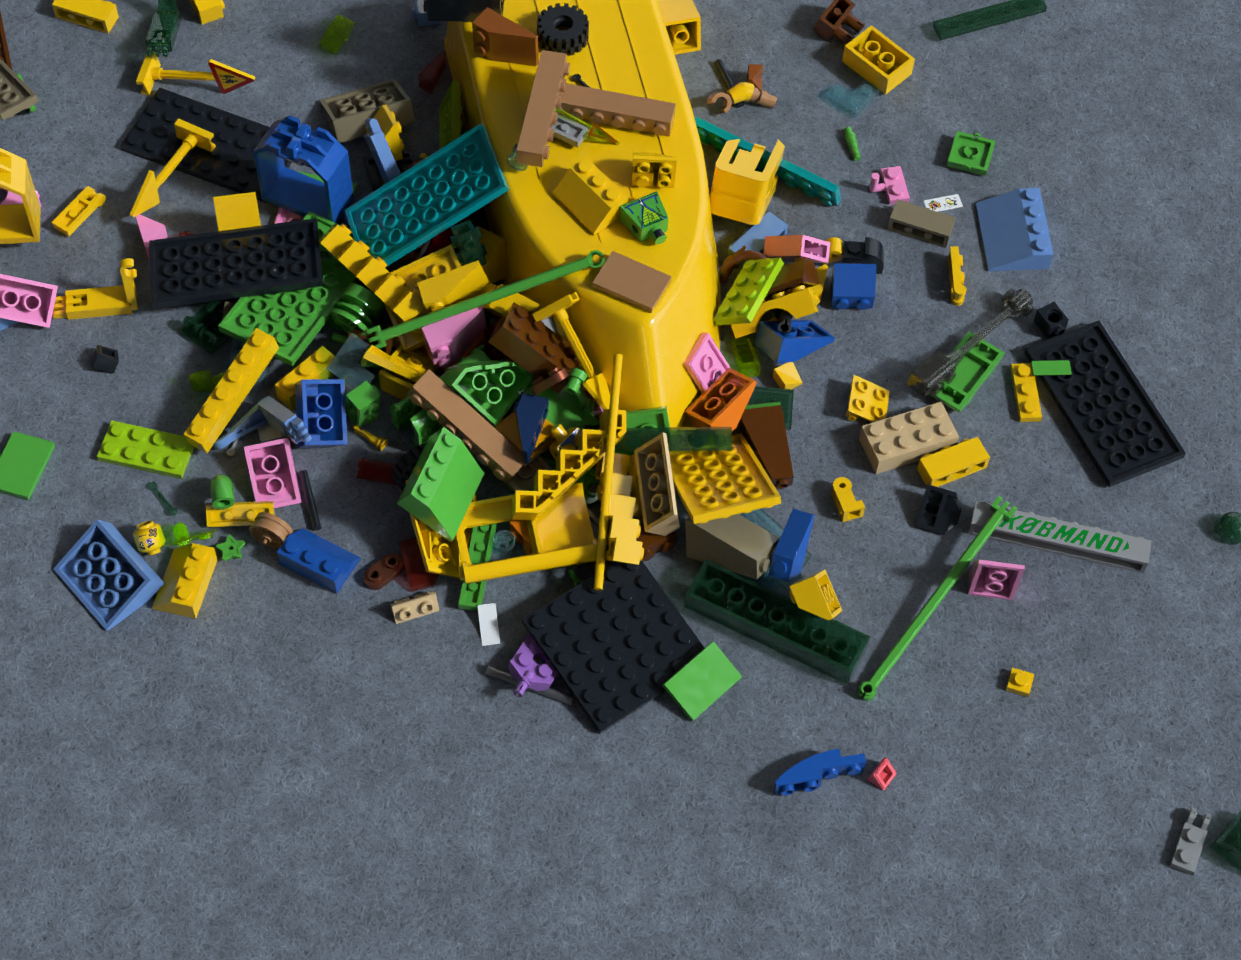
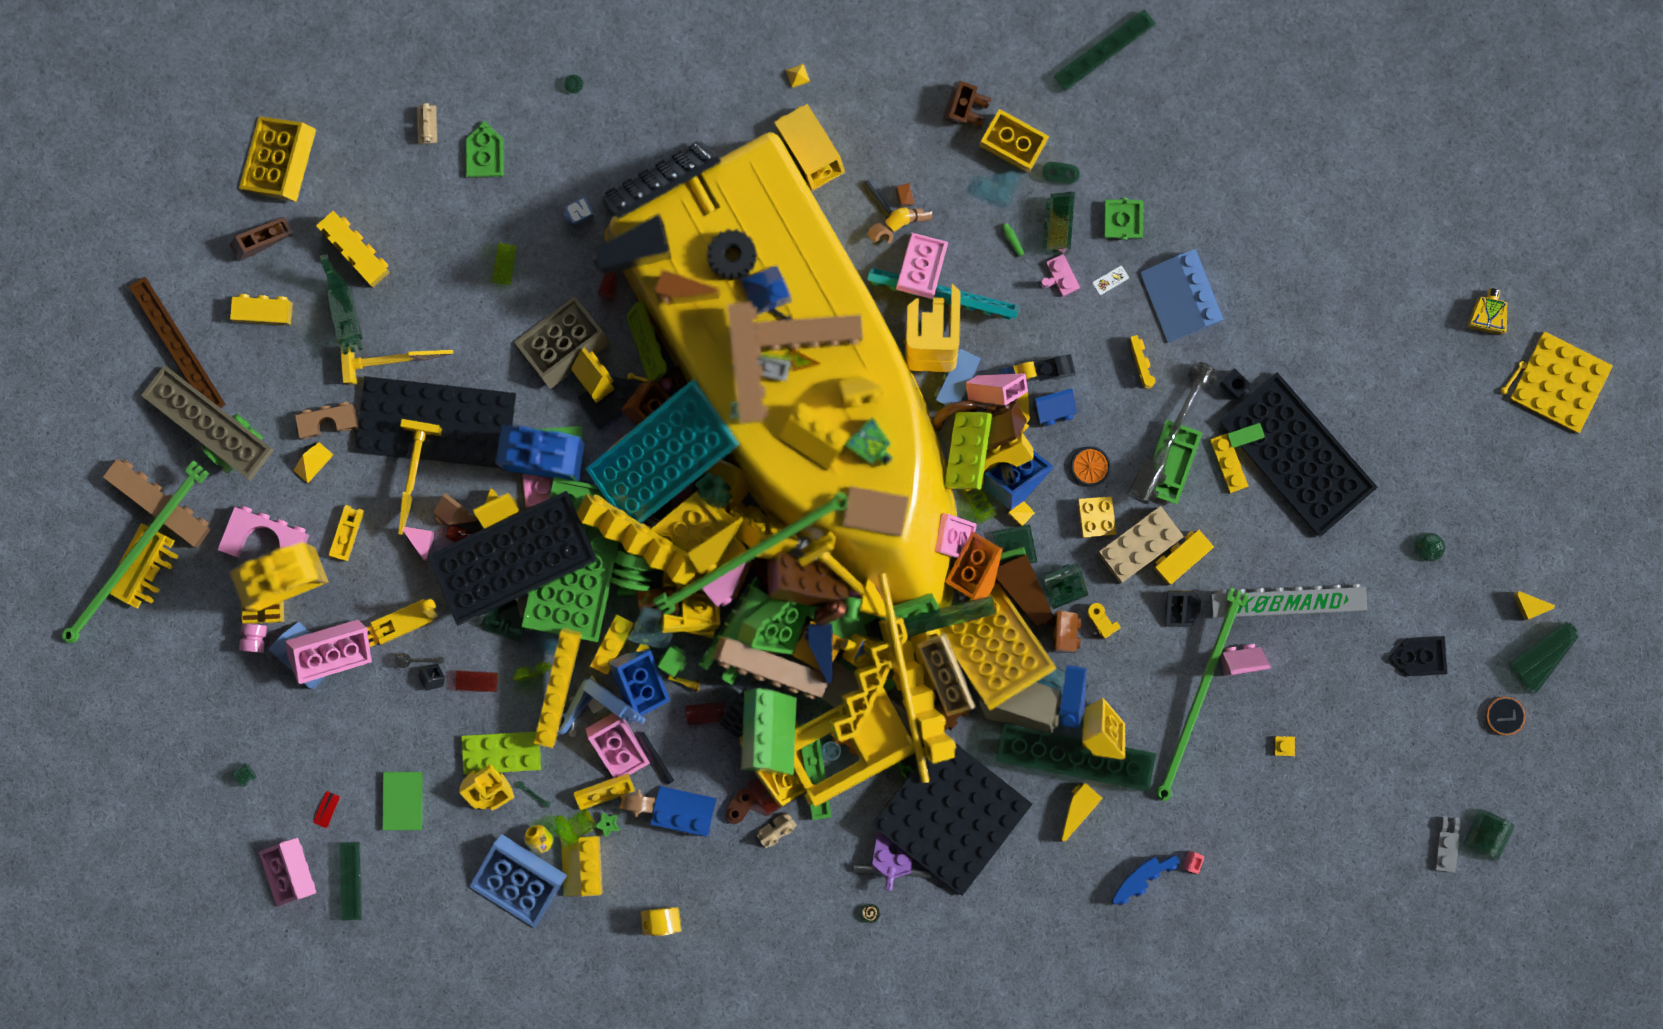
camera: 15 degrees left, 25 degrees up
(73, 143) = (312, 462): none -> yellow slope
(84, 336) = (404, 660): none -> clear smoke hinge
(89, 109) = (310, 422): none -> medium nougat arch
(114, 473) = (486, 789): none -> yellow brick
(151, 373) = (476, 680): none -> clear red slope
(192, 215) = (453, 513): none -> medium nougat slope
(222, 492) = (583, 780): bright green cylinder -> none
(248, 654) = (660, 921): none -> yellow piece
(380, 152) = (620, 428): medium blue hinge -> none
(488, 624) = (842, 828): white sticker -> none
(489, 722) = (870, 913): none -> tile
(588, 69) = (766, 290): none -> blue slope
(702, 681) = (1030, 827): bright green tile -> none
(752, 129) = (922, 265): none -> bright pink tile
(769, 674) = (1080, 806): none -> yellow slope
(802, 487) = (1065, 632): none -> dark orange slope
(814, 451) = (1064, 585): none -> clear green brick
(874, 356) = (1090, 466): none -> orange wheel
(904, 136) = (1059, 223): none -> clear green slope
(919, 100) = (1060, 170): none -> clear green plate
(921, 223) = (1098, 313): dark tan brick -> none
(1200, 634) = (1421, 656): none -> black tile

